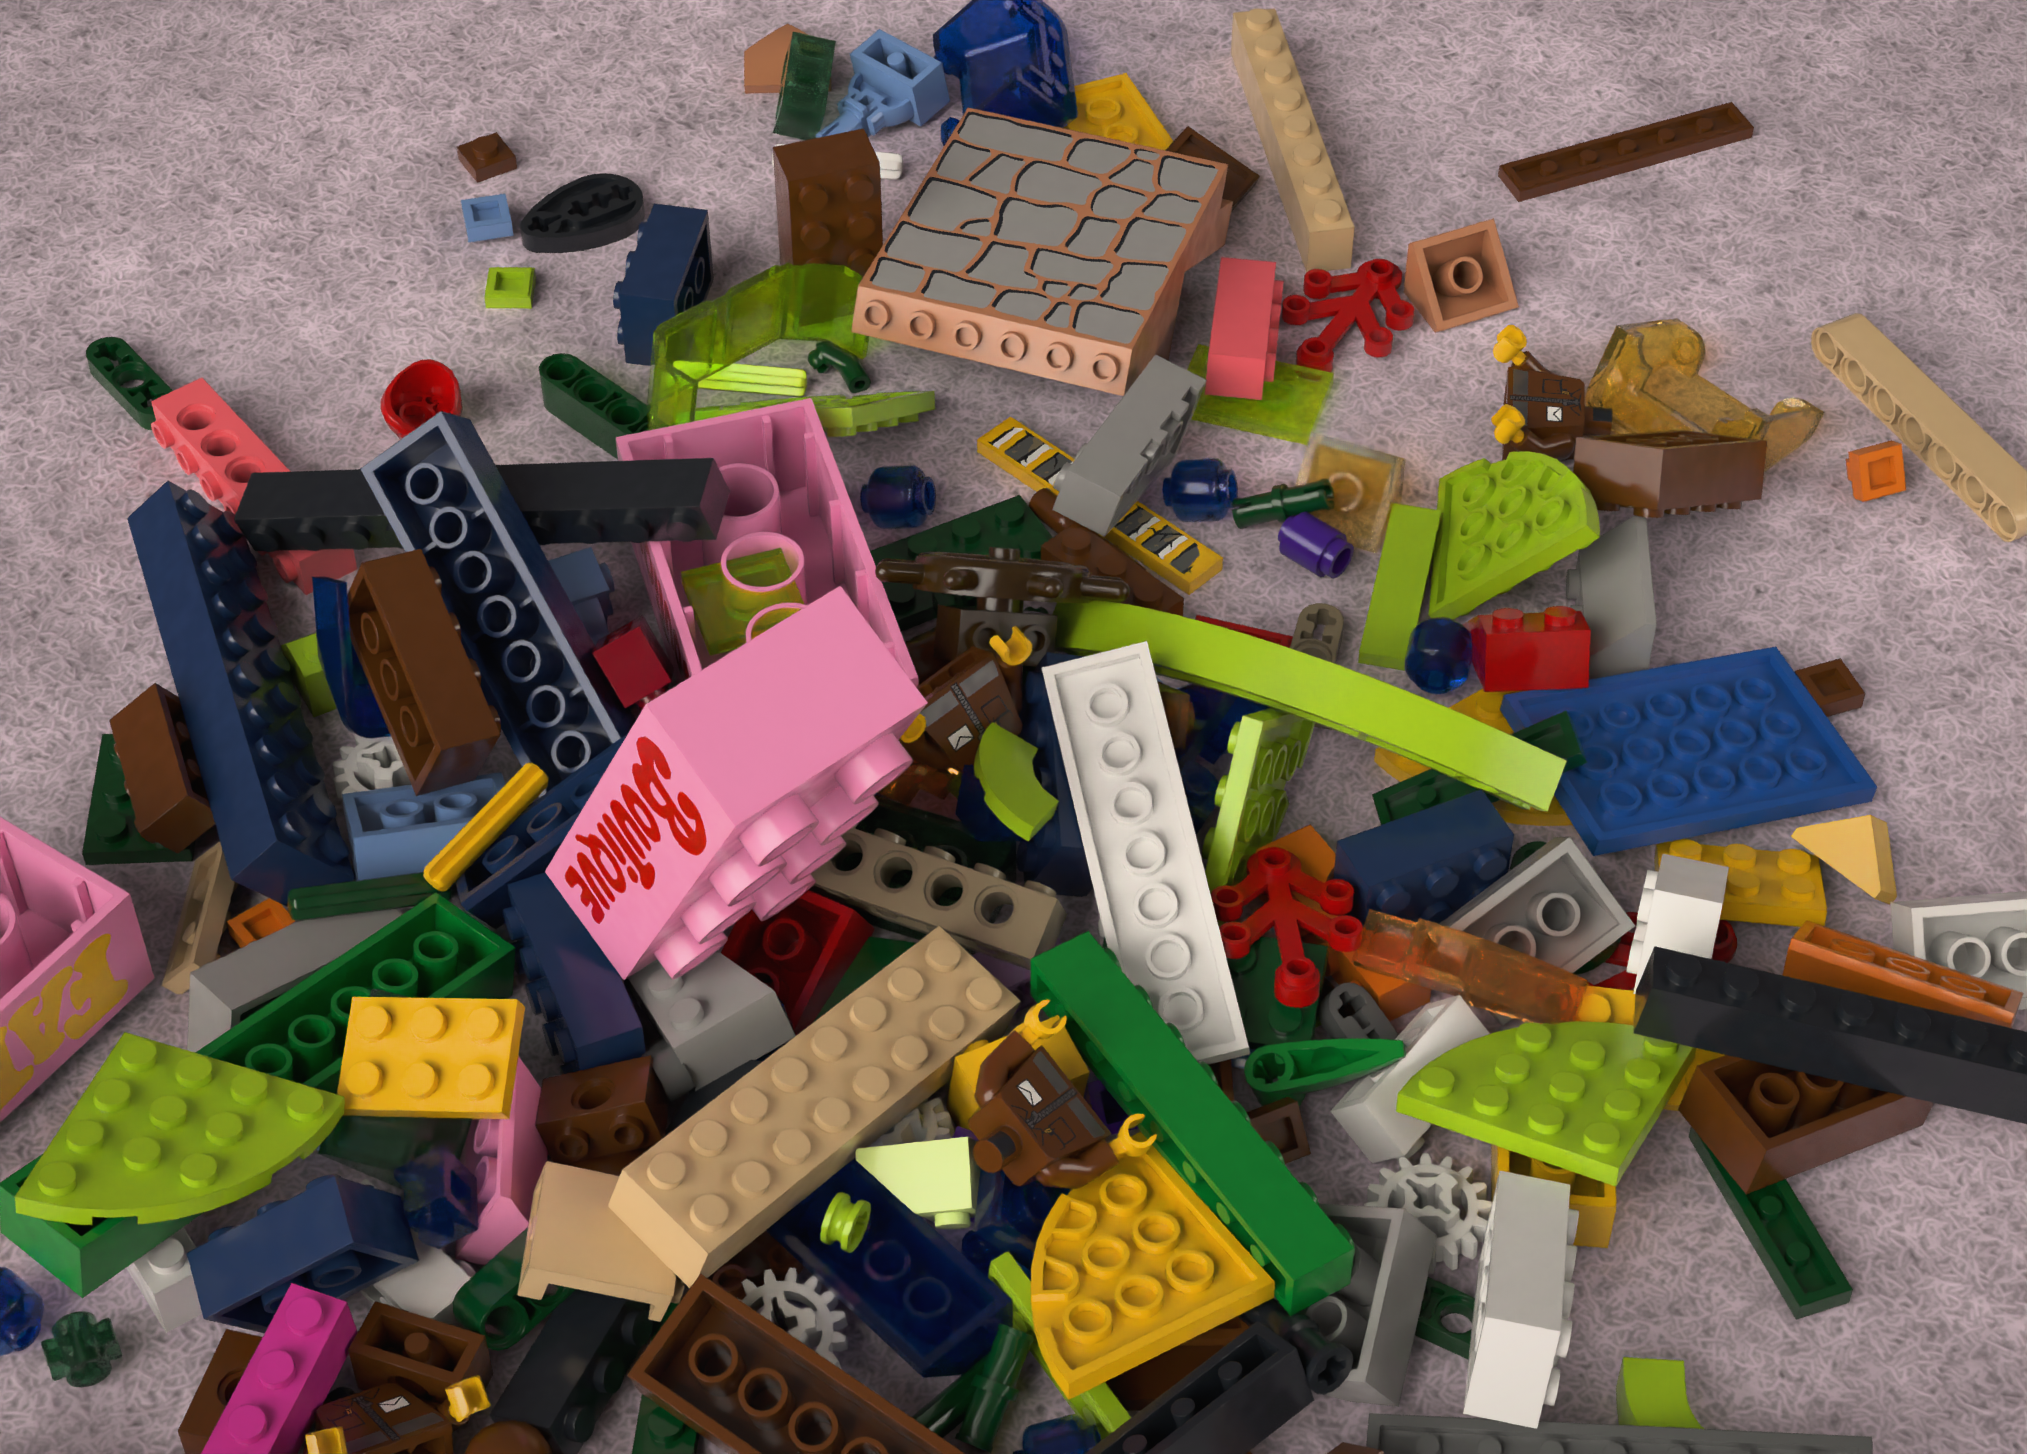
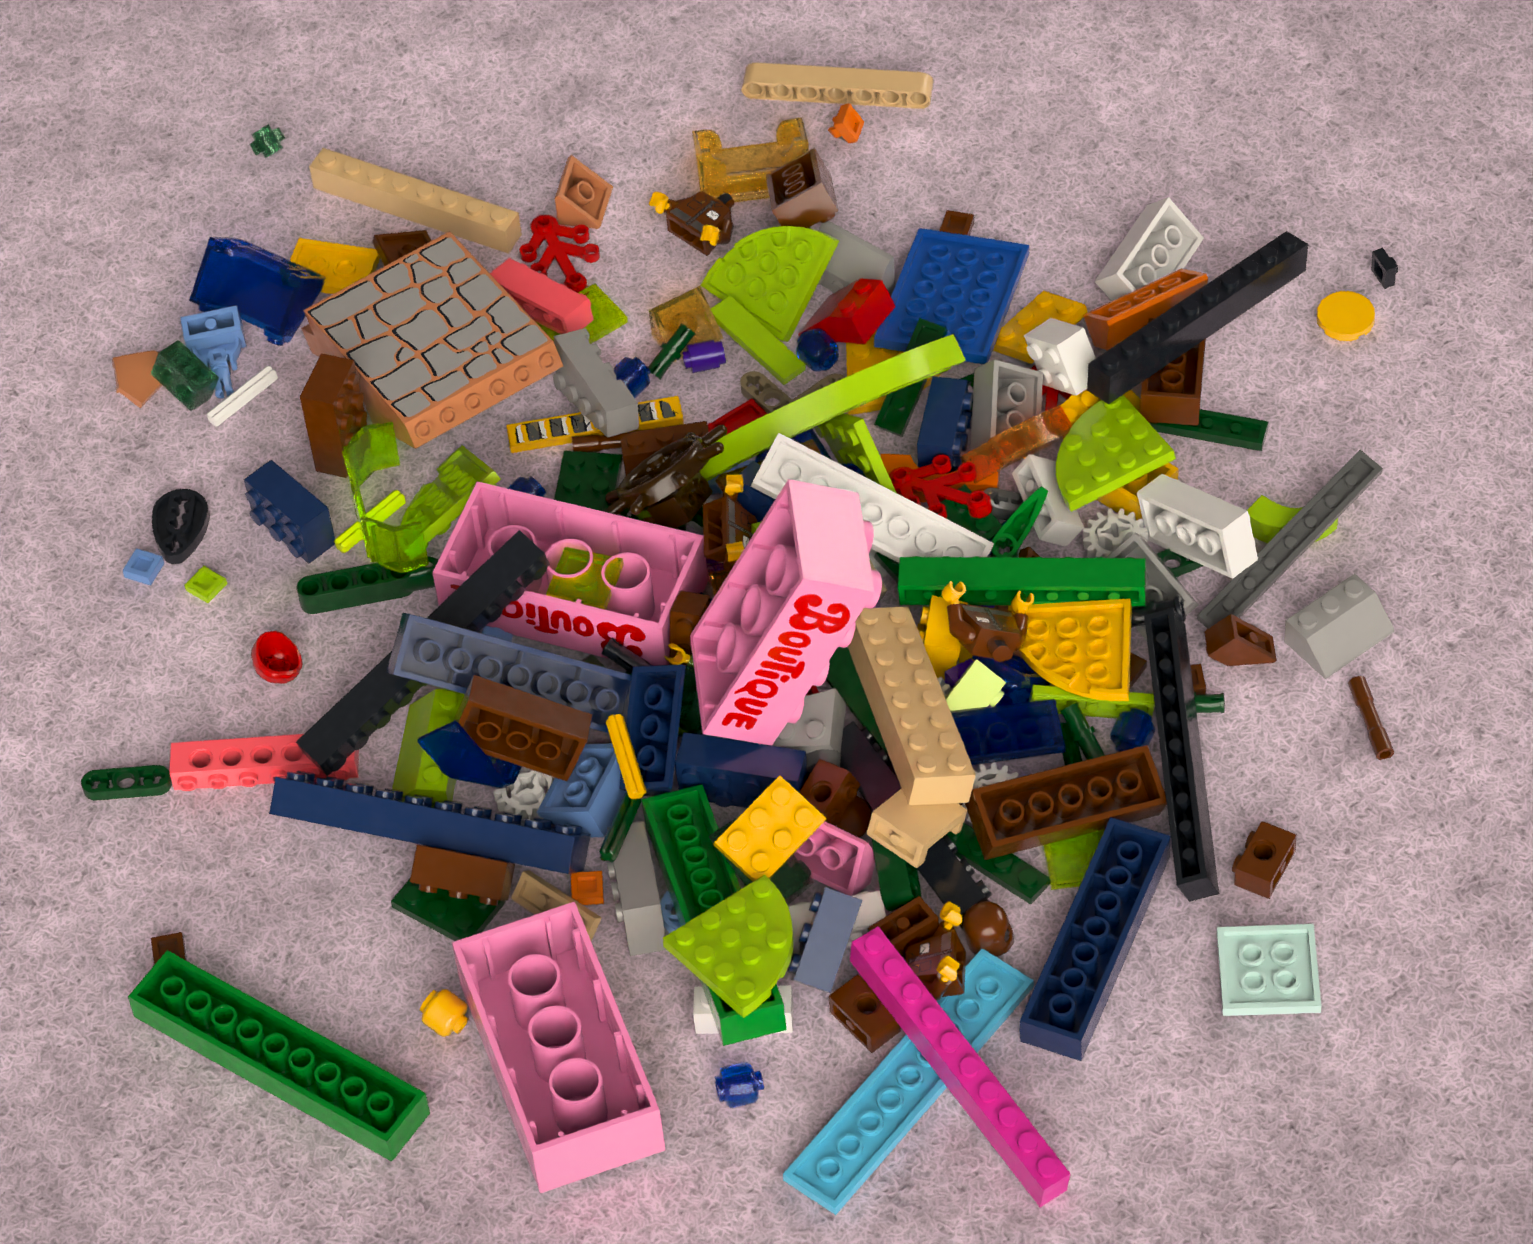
camera: 50 degrees left, 5 degrees up
(81, 1349) = (786, 1061): clear green gear -> none
(439, 1197) = (833, 875): clear blue brick -> none
(486, 157) = (87, 545): reddish brown plate -> none
(634, 663) = (581, 641): dark red brick -> none
(845, 1222) = (974, 732): lime bush -> none
(847, 363) = (401, 471): dark green arm -> none
(1625, 151) = (546, 78): reddish brown tile -> none
(1856, 850) = (1057, 275): yellow slope -> none

